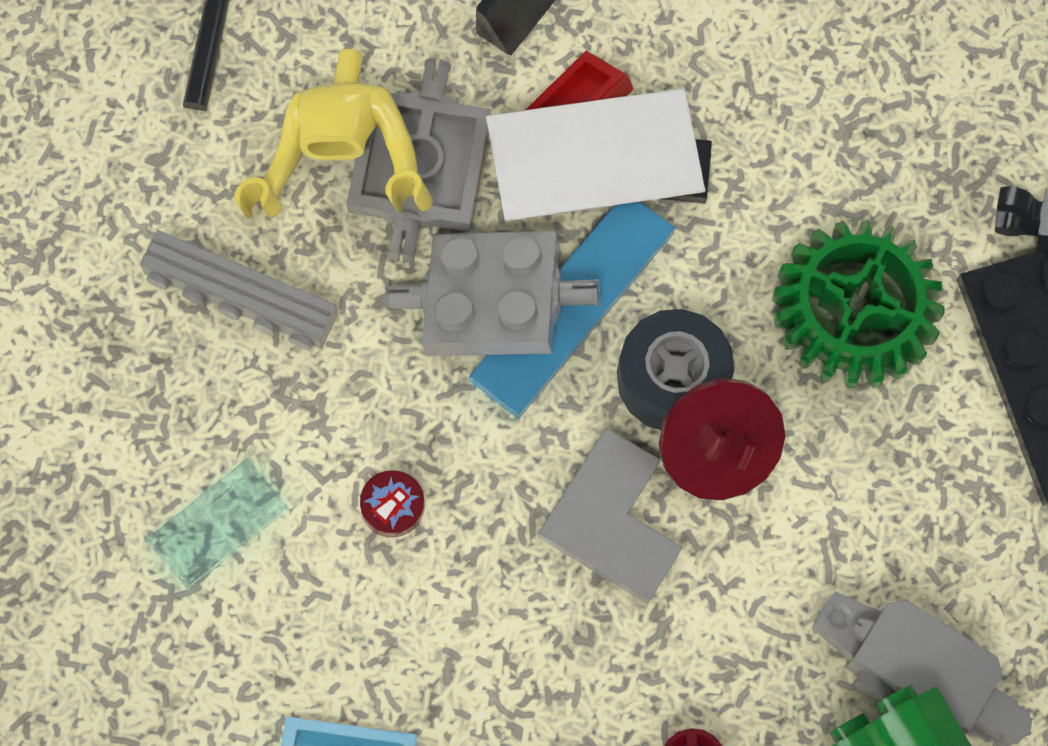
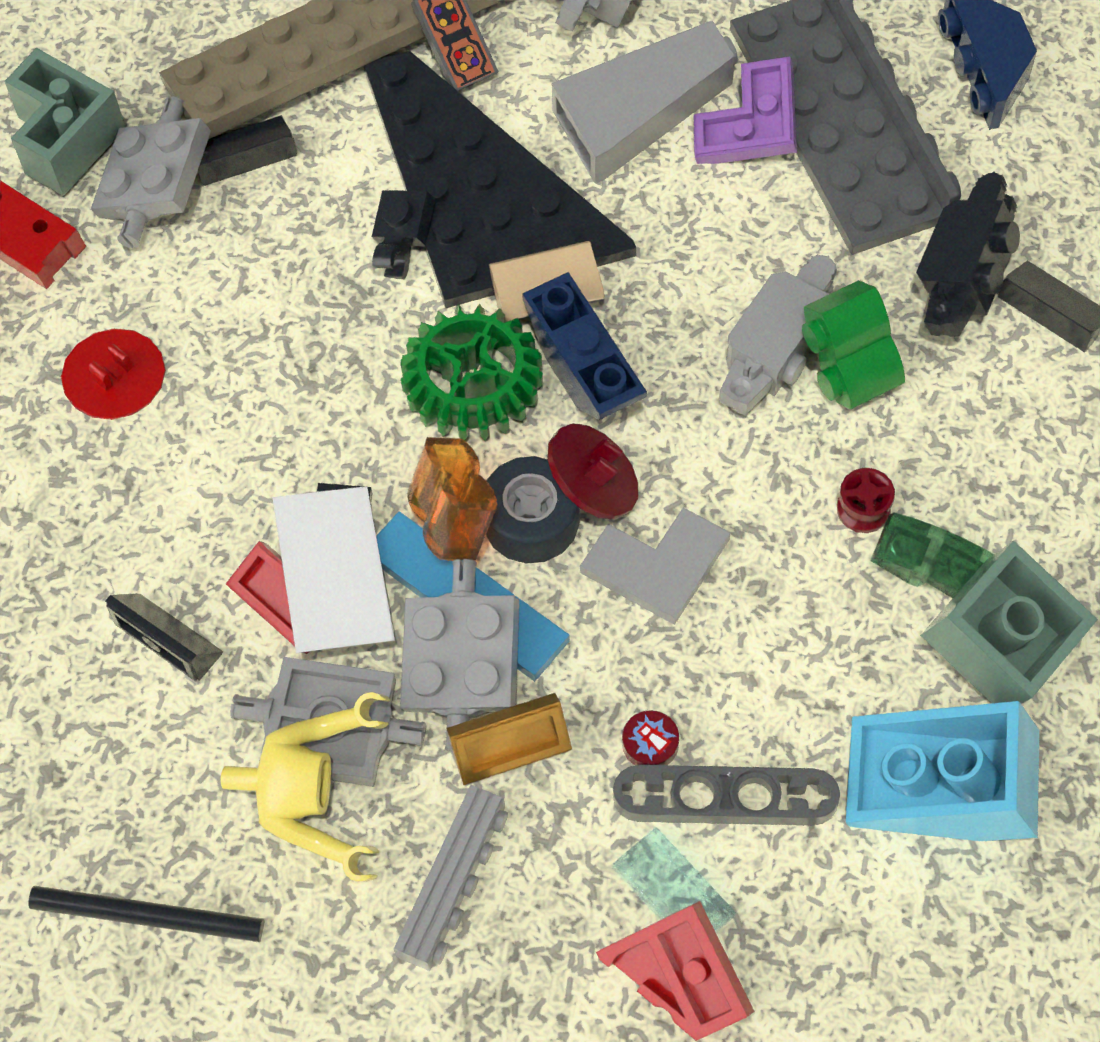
camera: 85 degrees left, 10 degrees down
(117, 527) = (683, 971): none -> wing
(318, 584) = (725, 784): none -> dark grey beam
(391, 347) = (509, 738): none -> pearl gold tile
(676, 275) = (451, 498): none -> clear orange brick
(884, 426) = (581, 349): none -> dark blue slope
(986, 390) = (526, 272): none -> tan slope

